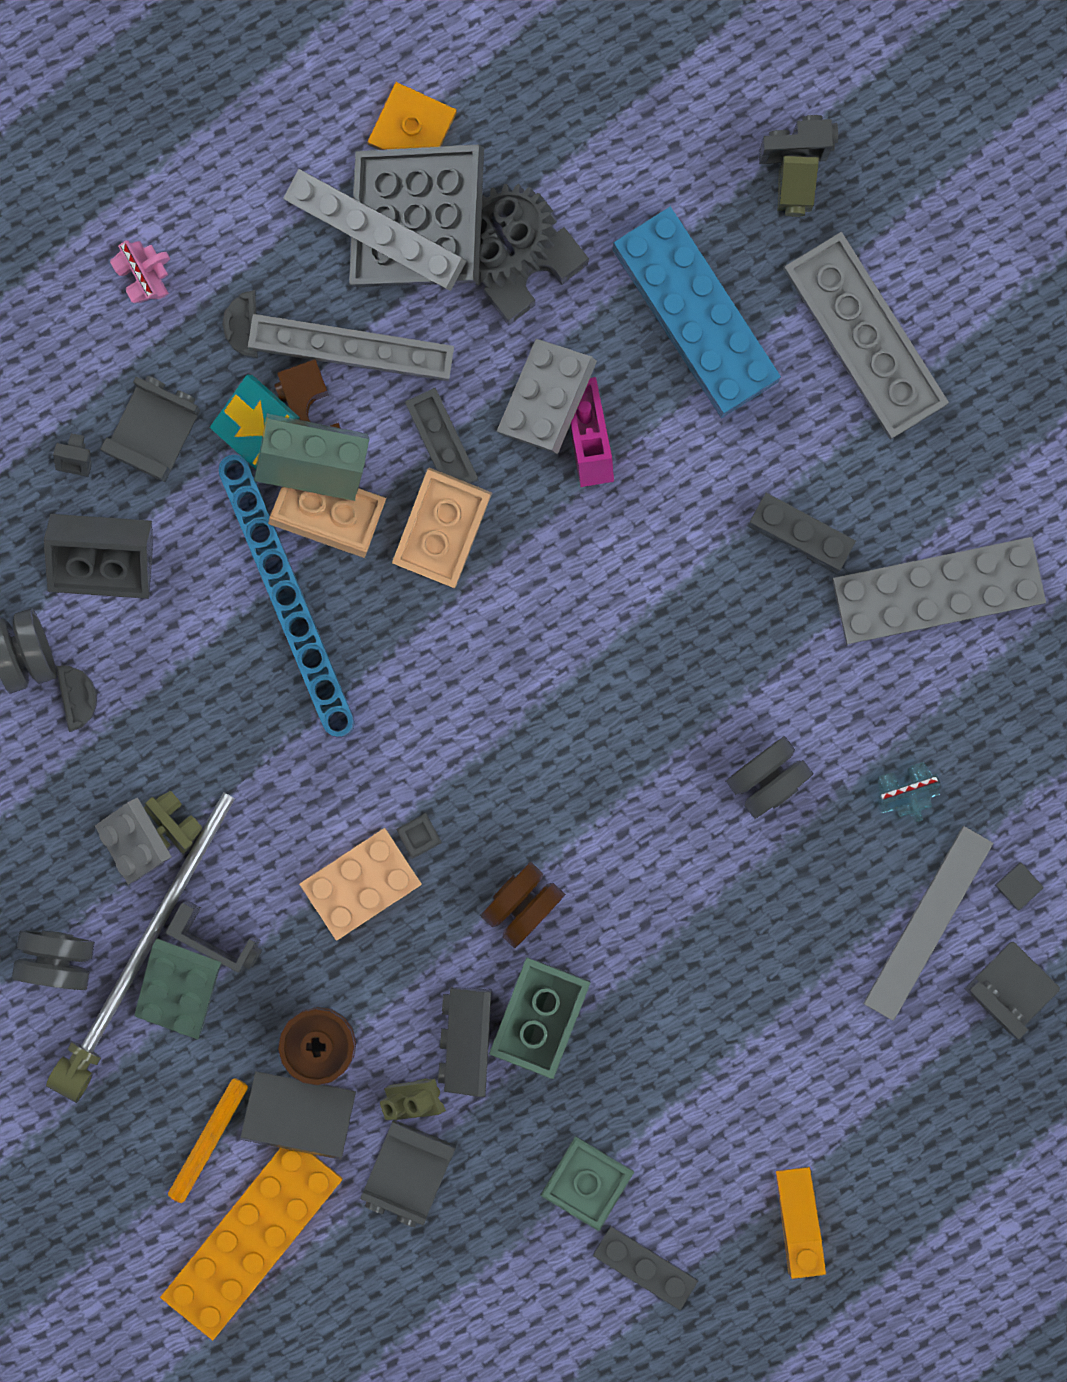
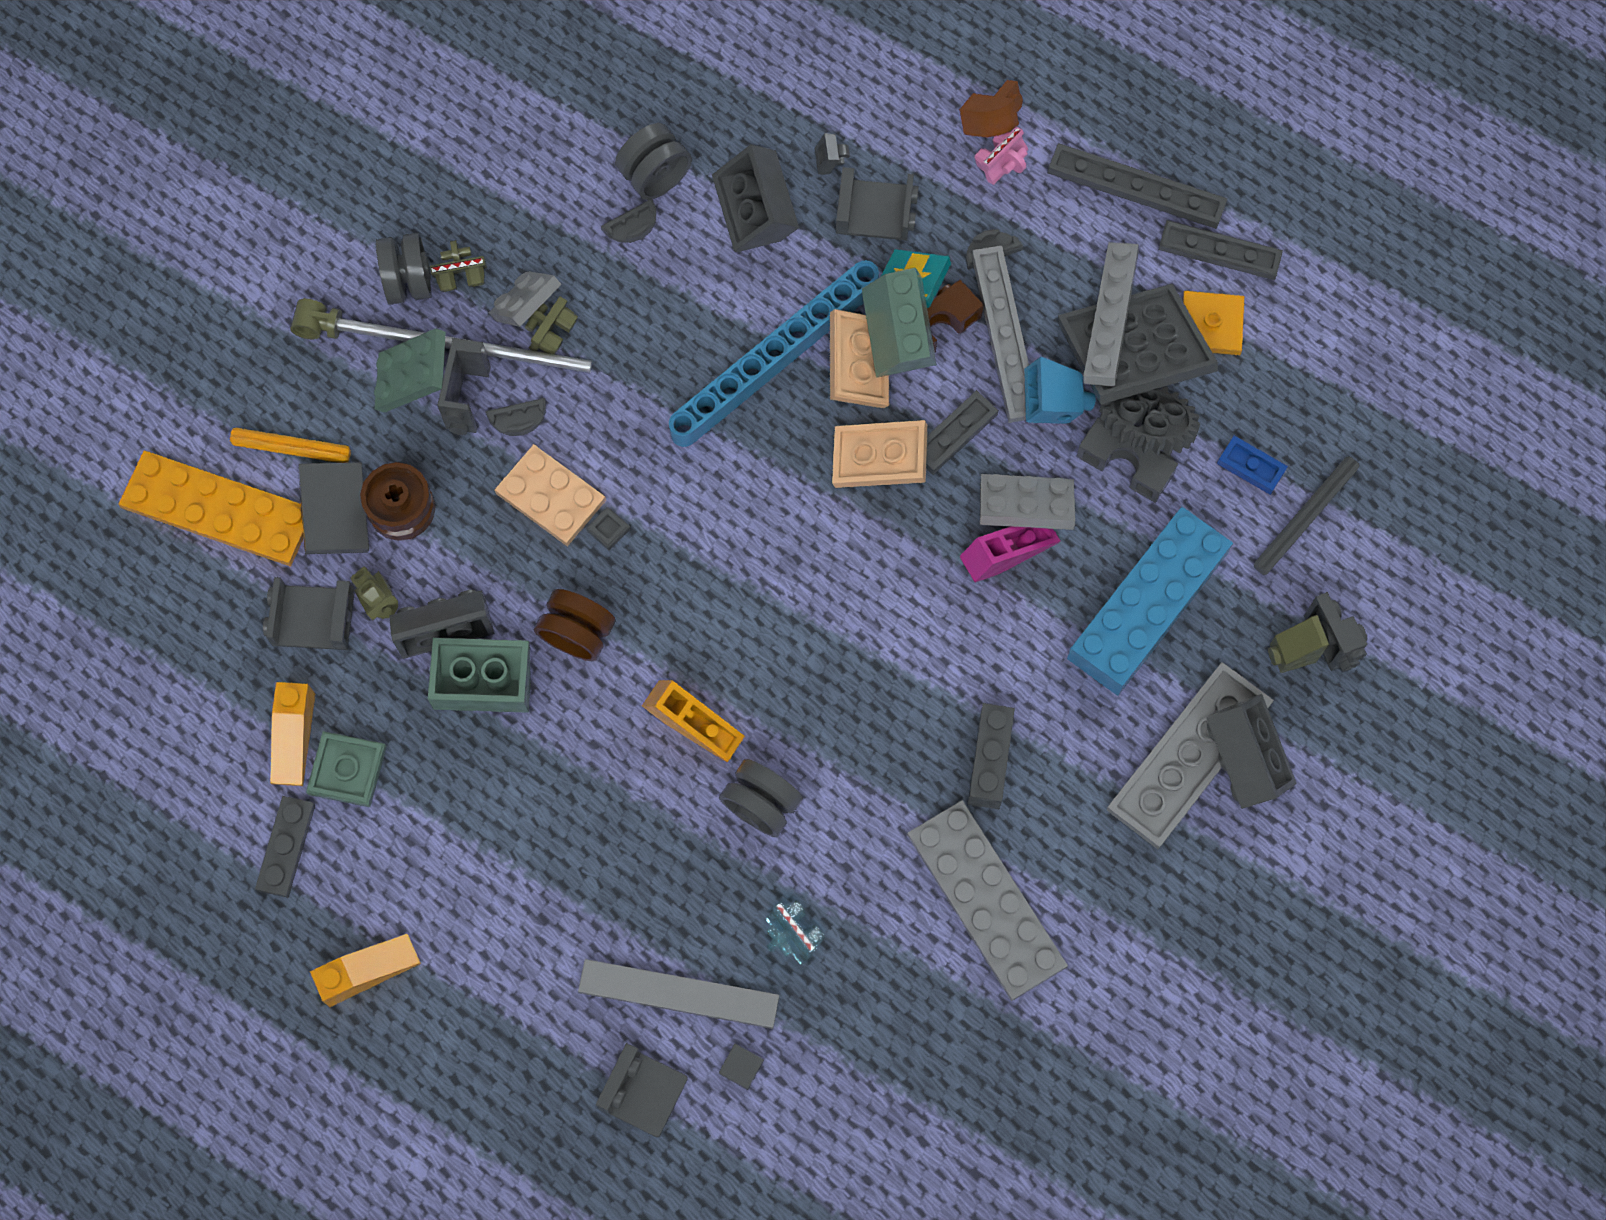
camera: 75 degrees right, 15 degrees down
(65, 915) = (445, 272): none -> olive hips
(94, 265) = (994, 114): none -> dark orange brick
(228, 142) = (1137, 185): none -> dark grey plate
(261, 890) = (518, 418): none -> dark grey tile
(332, 84) = (1220, 250): none -> dark grey tile
(439, 323) = (1054, 393): none -> dark azure torso
(531, 1229) = (290, 732): none -> light orange slope
(585, 150) = (1252, 465): none -> blue plate
(657, 117) = (1306, 515): none -> dark grey axle
(658, 817) = (692, 719): none -> light orange slope
(890, 275) = (1251, 752): none -> dark grey slope

